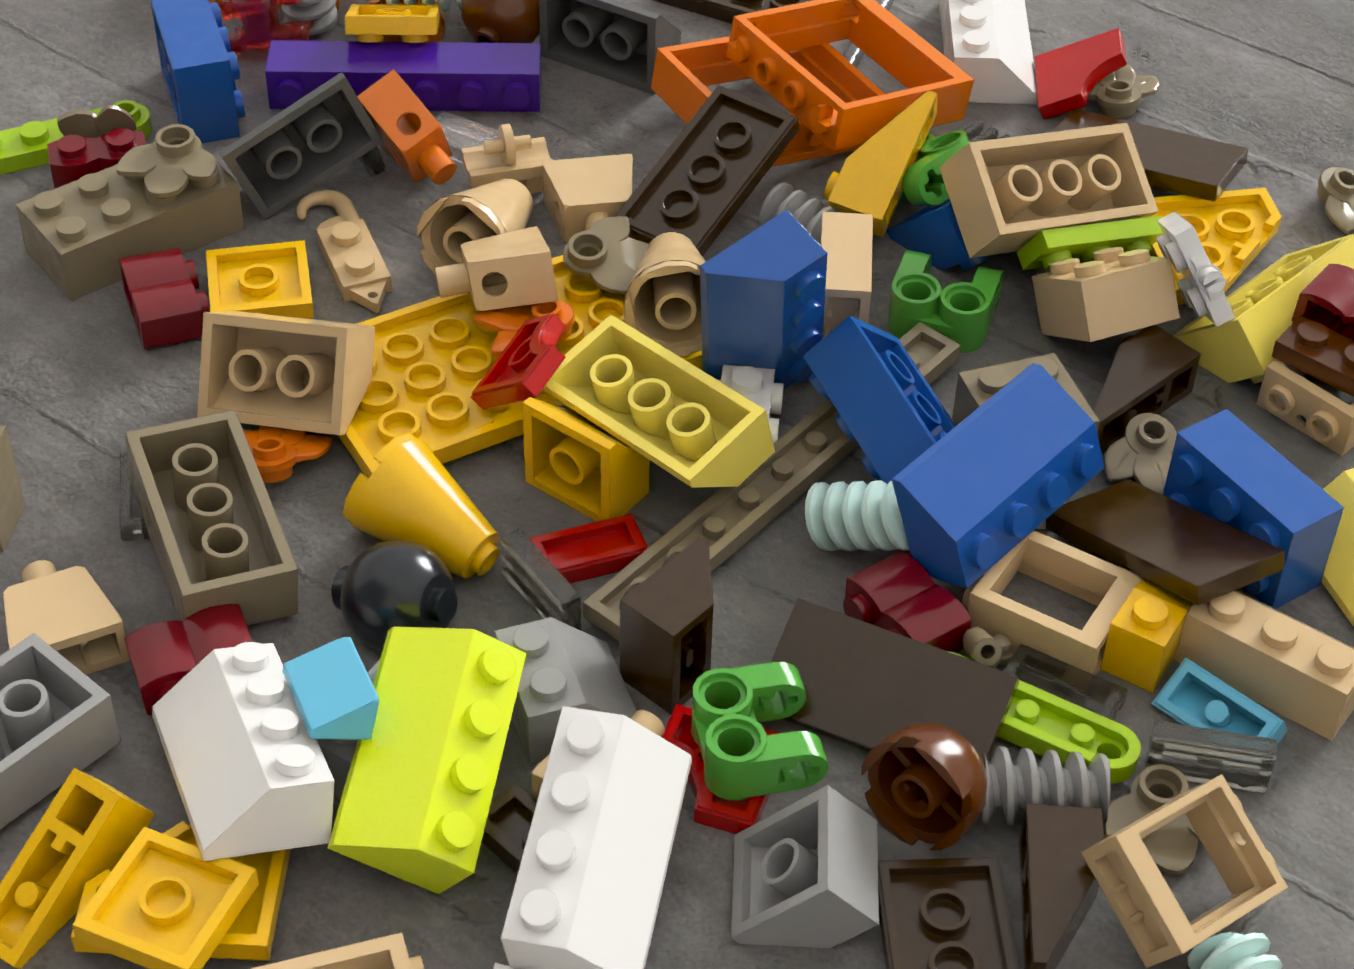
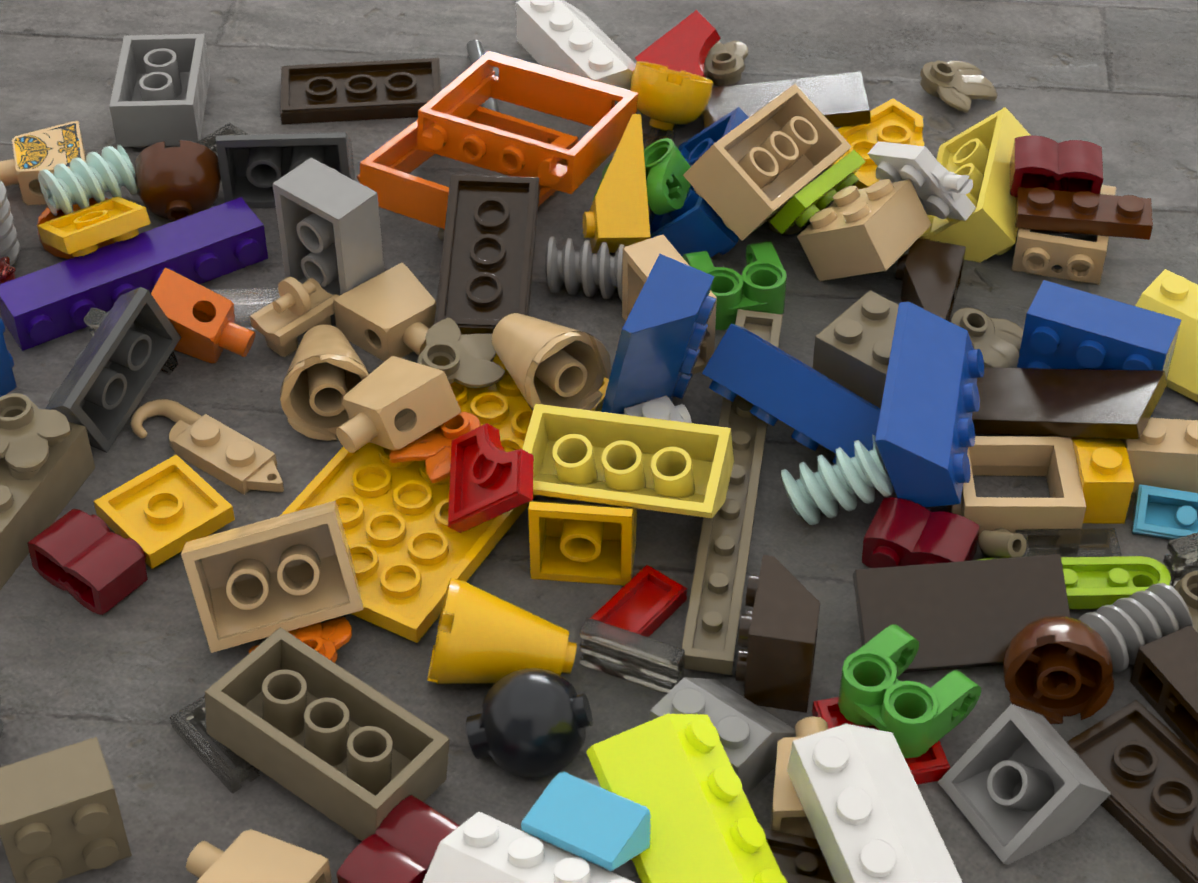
camera: 30 degrees left, 0 degrees up
(573, 91) = (328, 227): none -> light grey brick
(1026, 98) = (669, 95): none -> yellow cylinder

